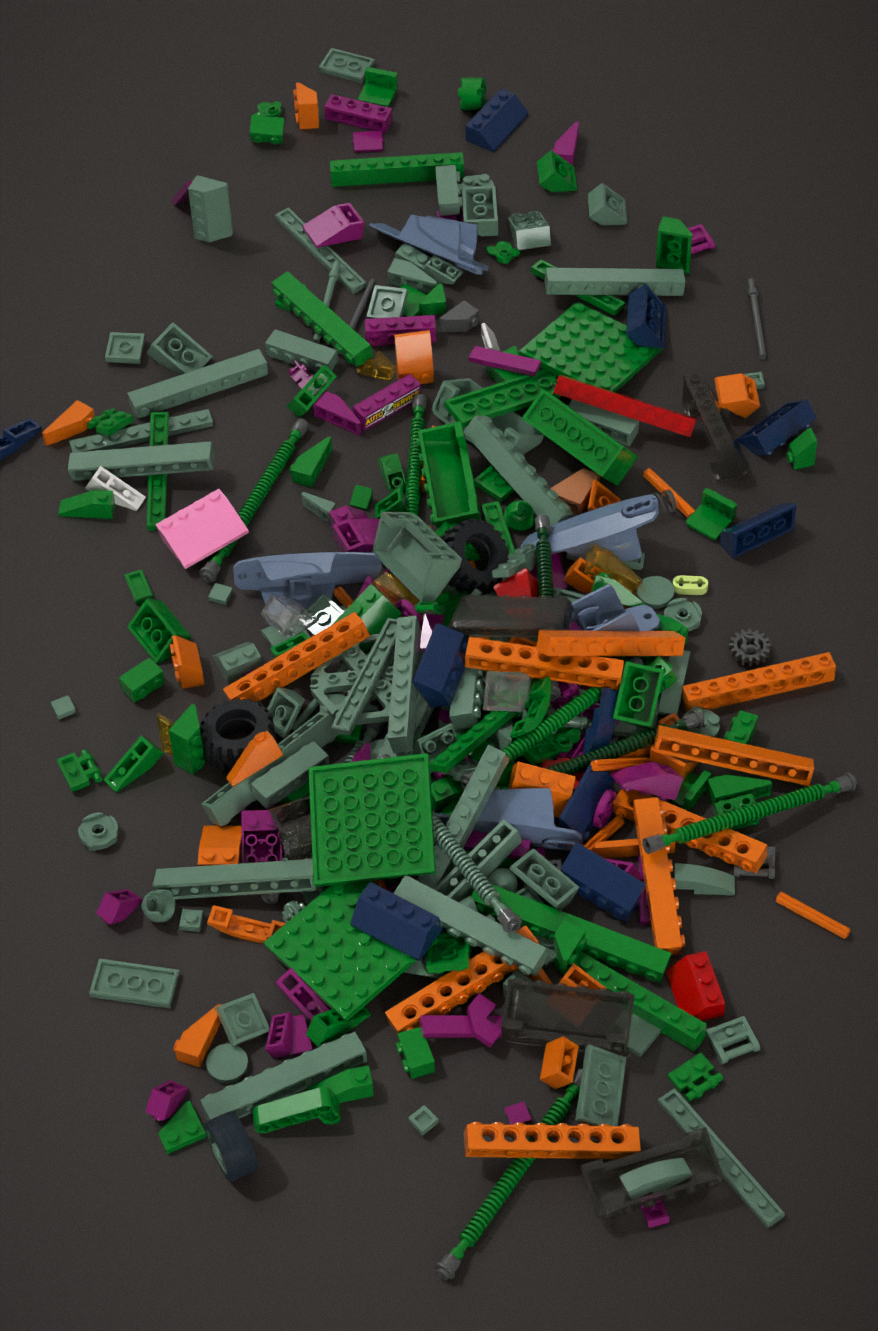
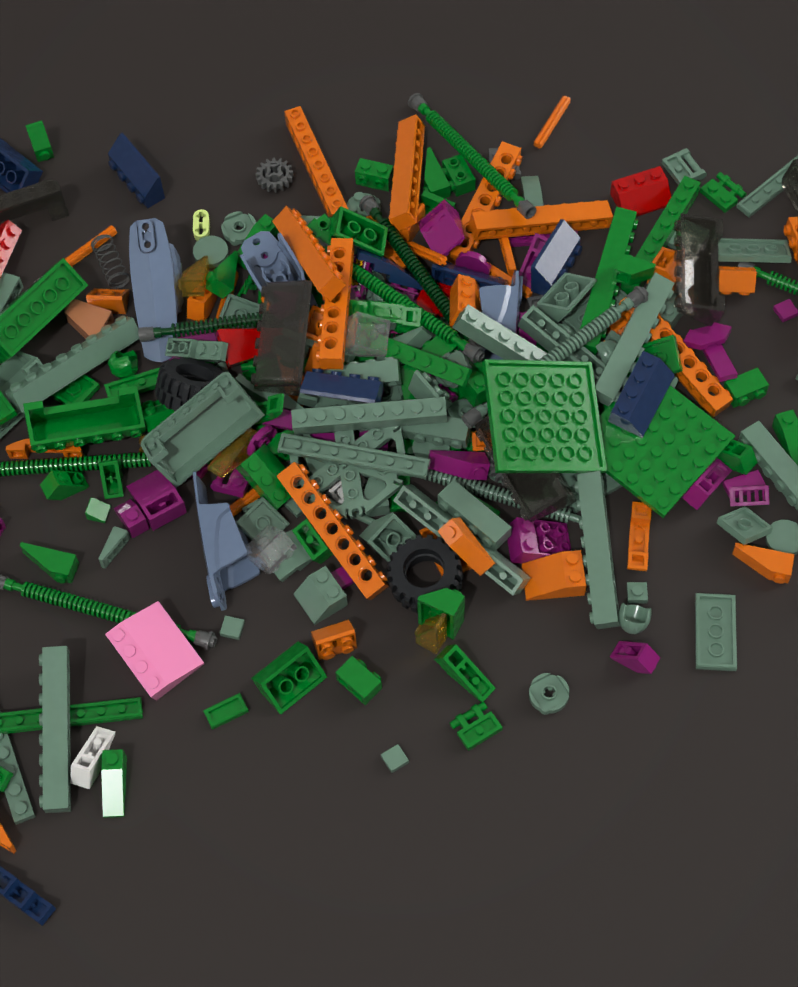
camera: 95 degrees left, 10 degrees up
(291, 909) = (619, 500): sand green gear -> none
(713, 514) = (117, 210): green bracket -> none

